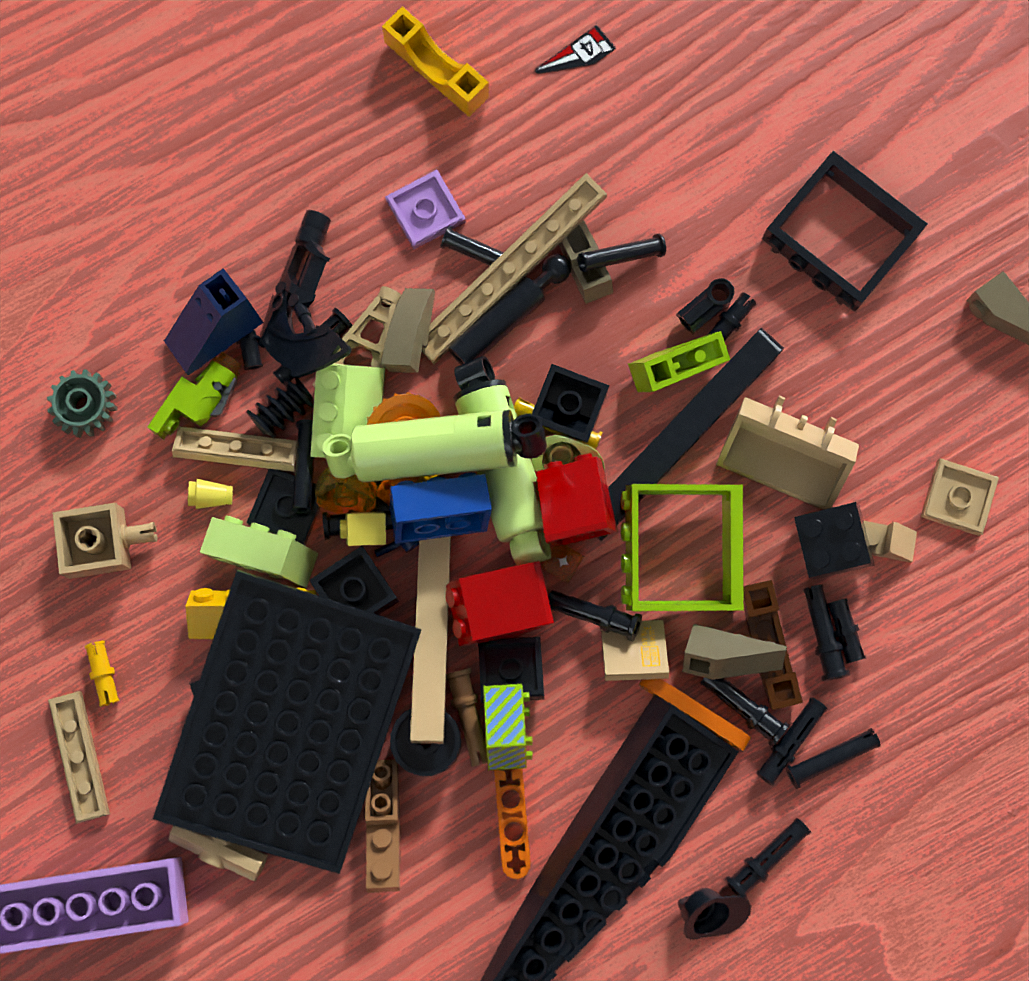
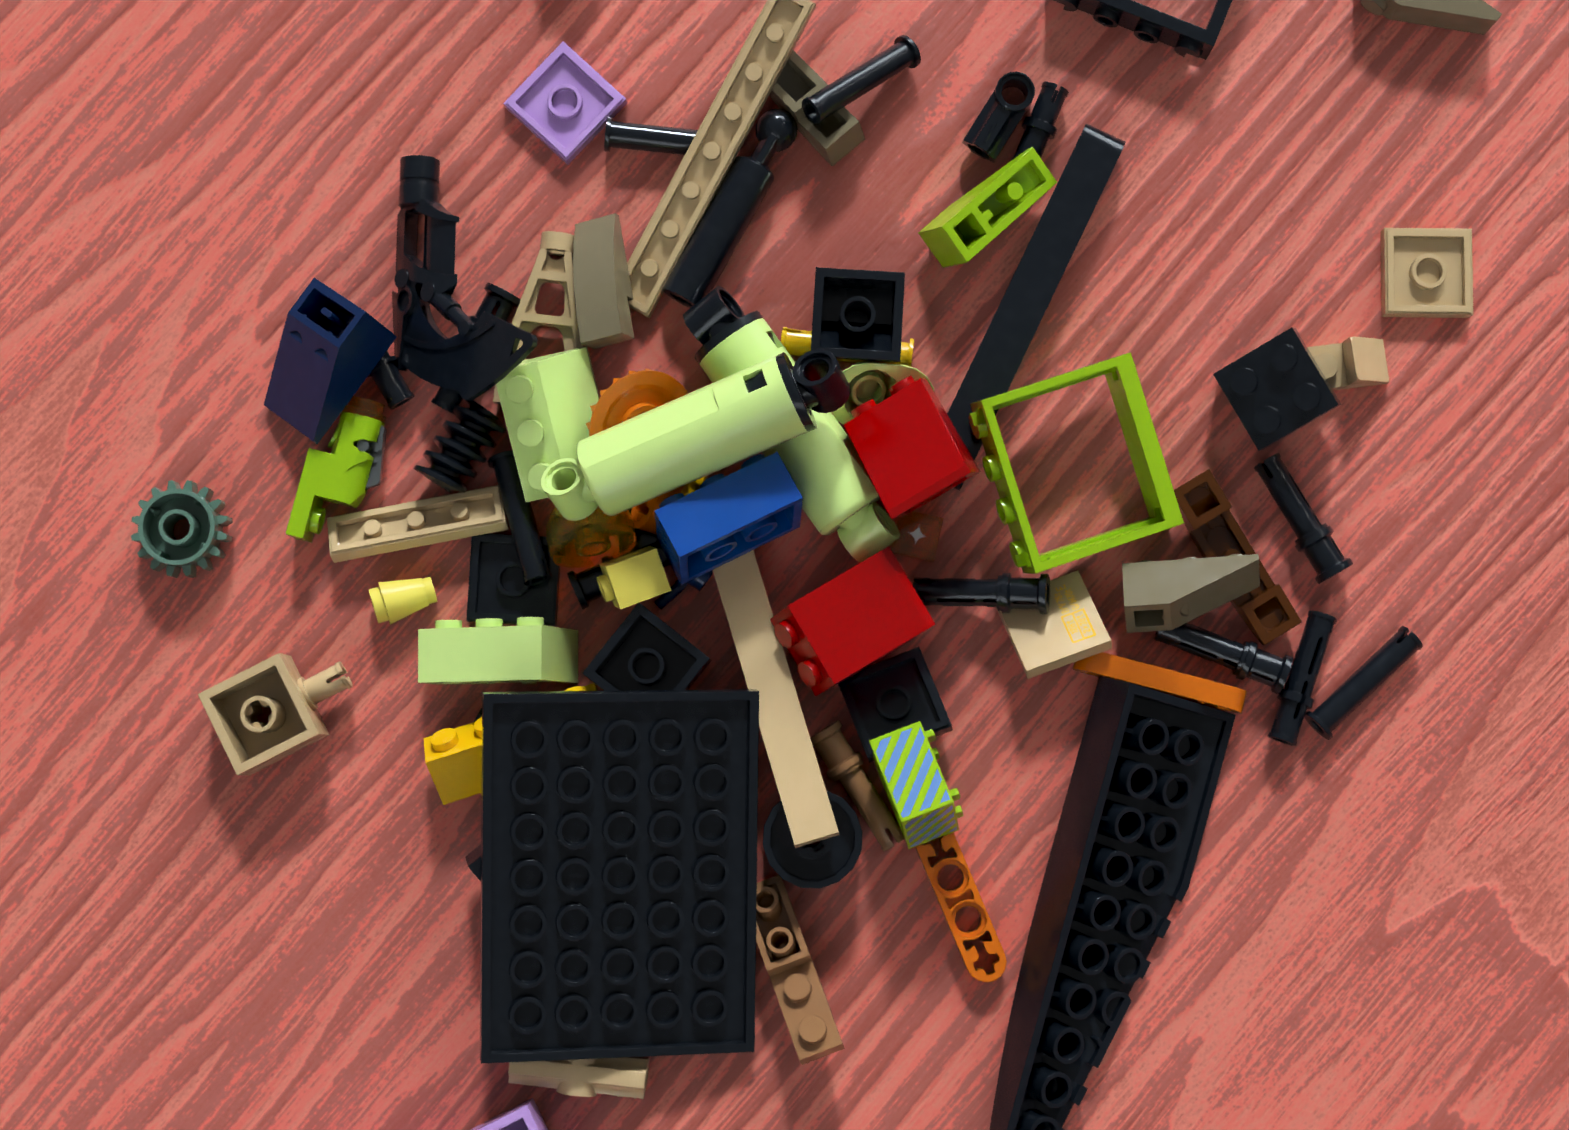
camera: 15 degrees left, 5 degrees up
(79, 757) = (347, 1011): tan tile -> none
(102, 673) = (339, 889): yellow pin -> none
(711, 914) = (1268, 942): black piece -> none
(788, 453) = (1177, 287): tan piece -> none
(796, 831) = (1345, 796): black pin -> none
(846, 630) = (1330, 505): black pin -> none

